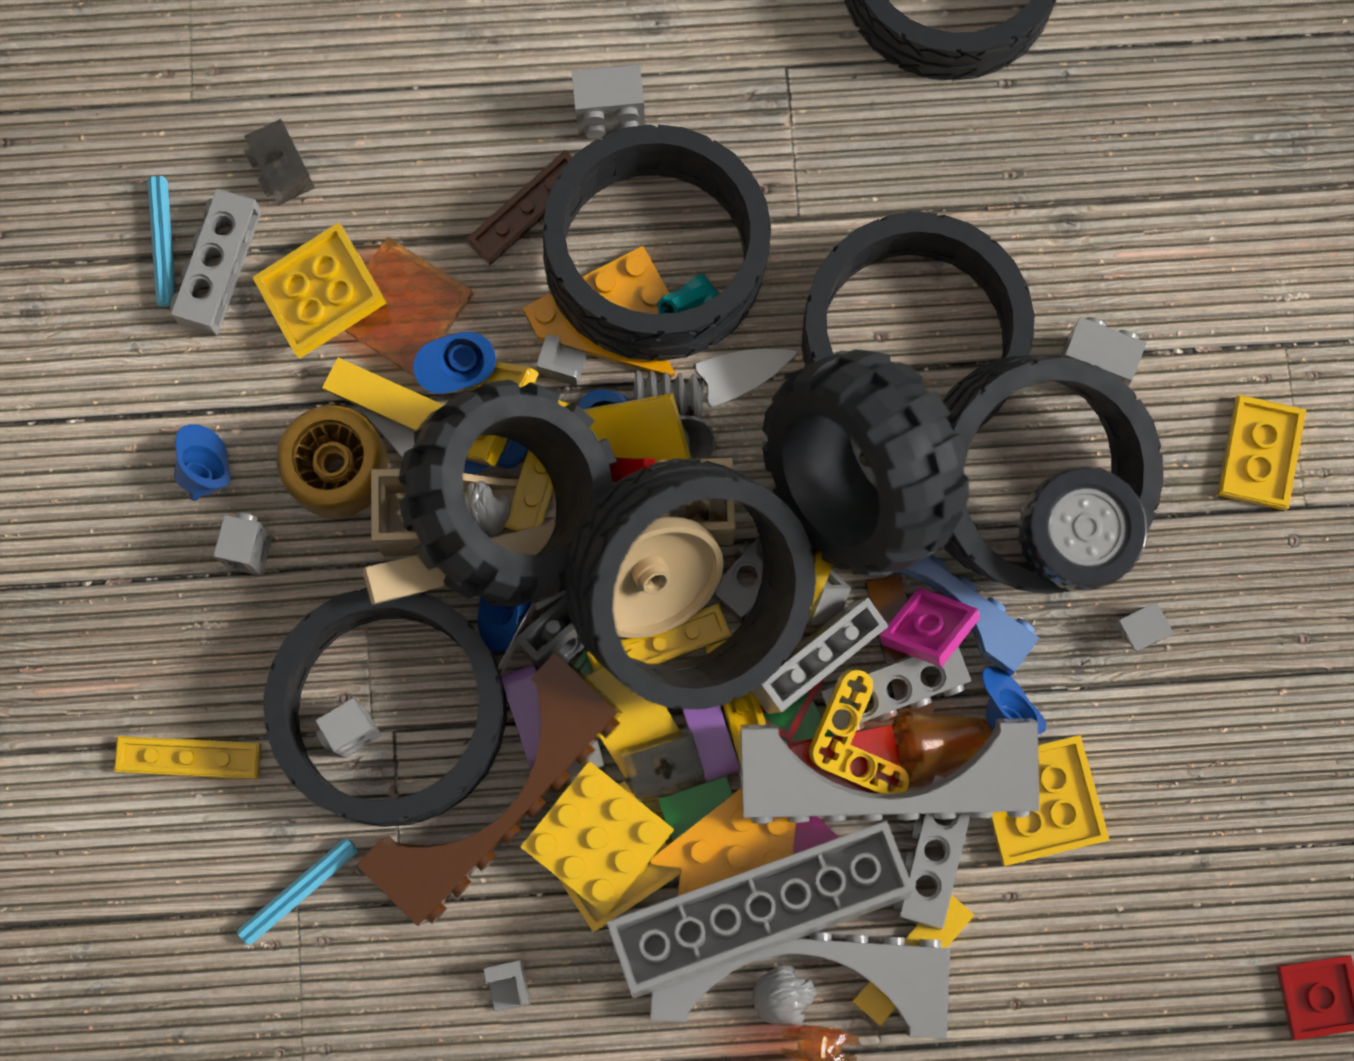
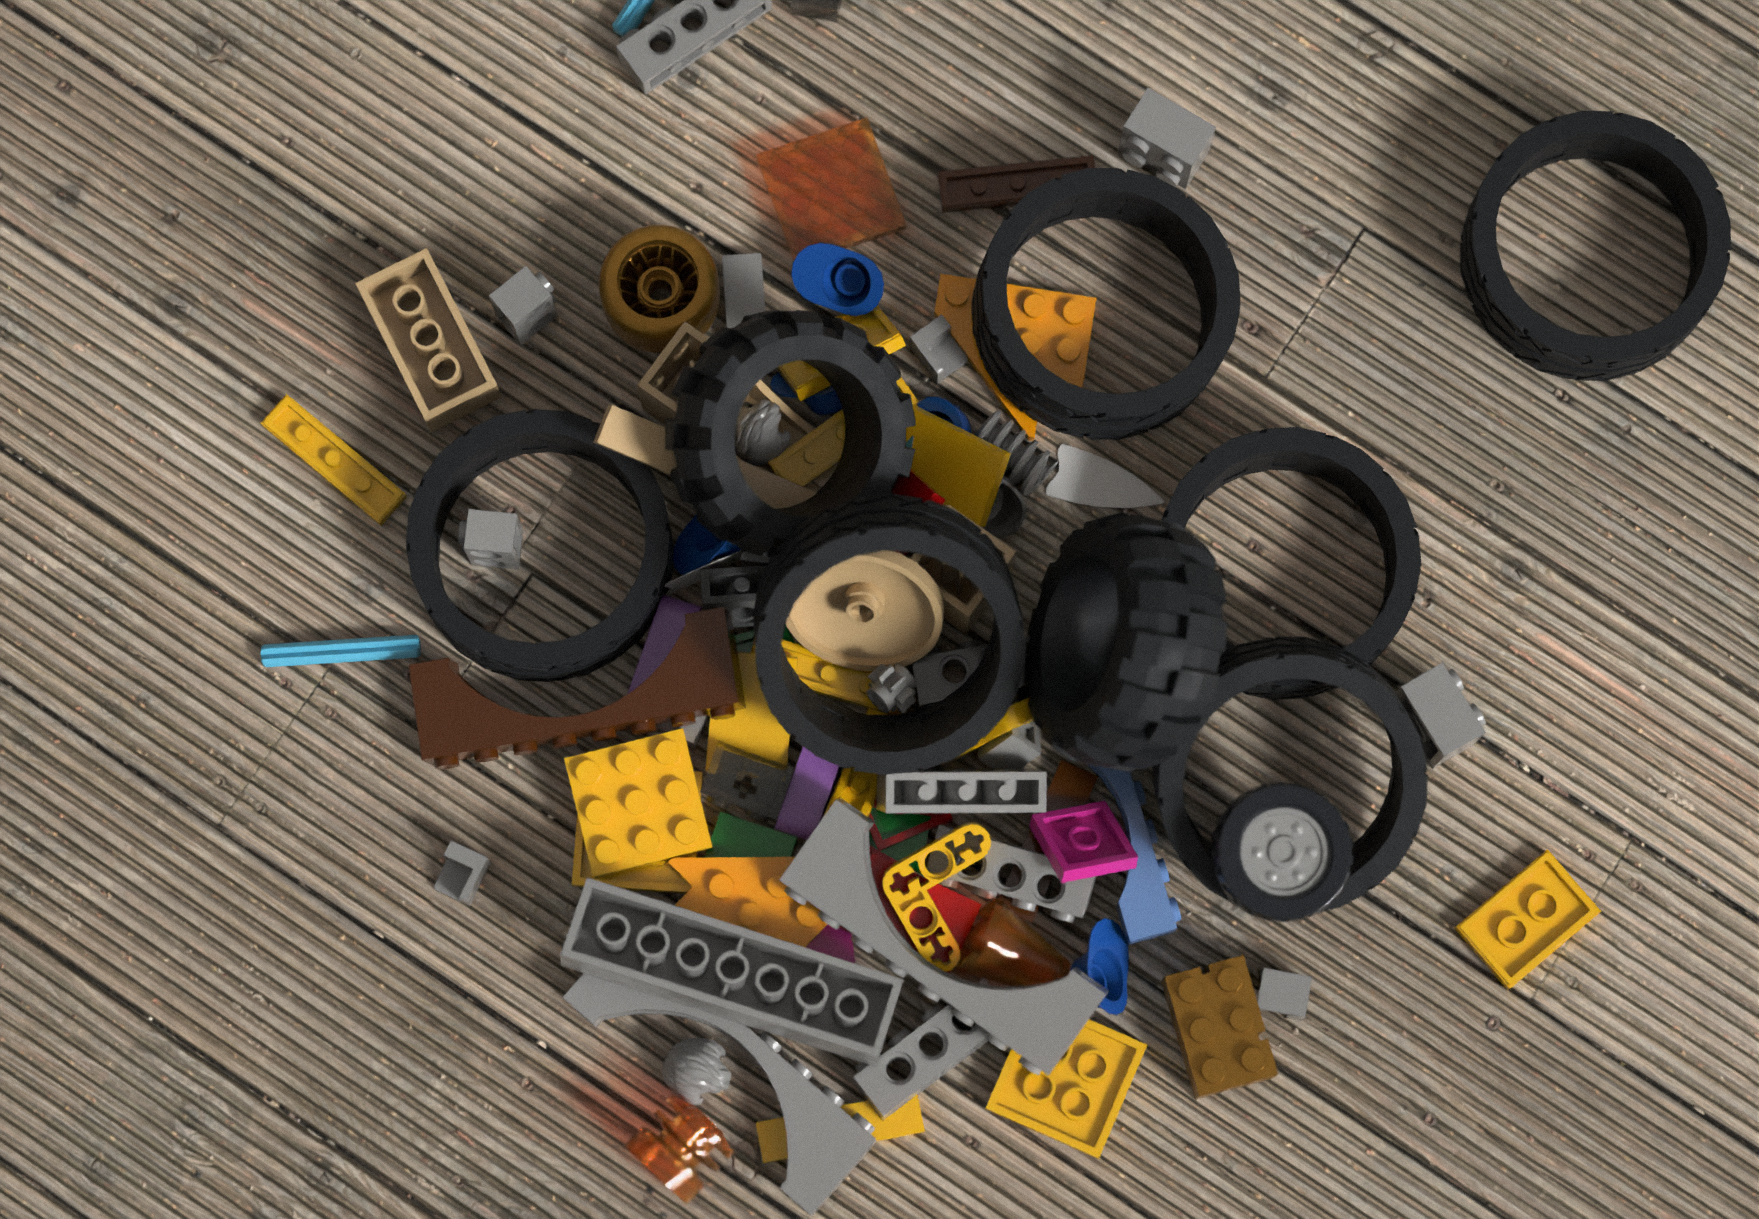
camera: 35 degrees right, 0 degrees up
(192, 620) = (428, 340): none -> tan brick
(200, 461) = (543, 200): blue piece -> none
(319, 290) = (766, 122): yellow plate -> none
(378, 395) = (747, 258): yellow tile -> none
(691, 295) = (1104, 377): teal piece -> none
(714, 620) = (891, 688): none -> light grey gear
(1119, 685) = (1219, 1027): none -> pearl gold piece

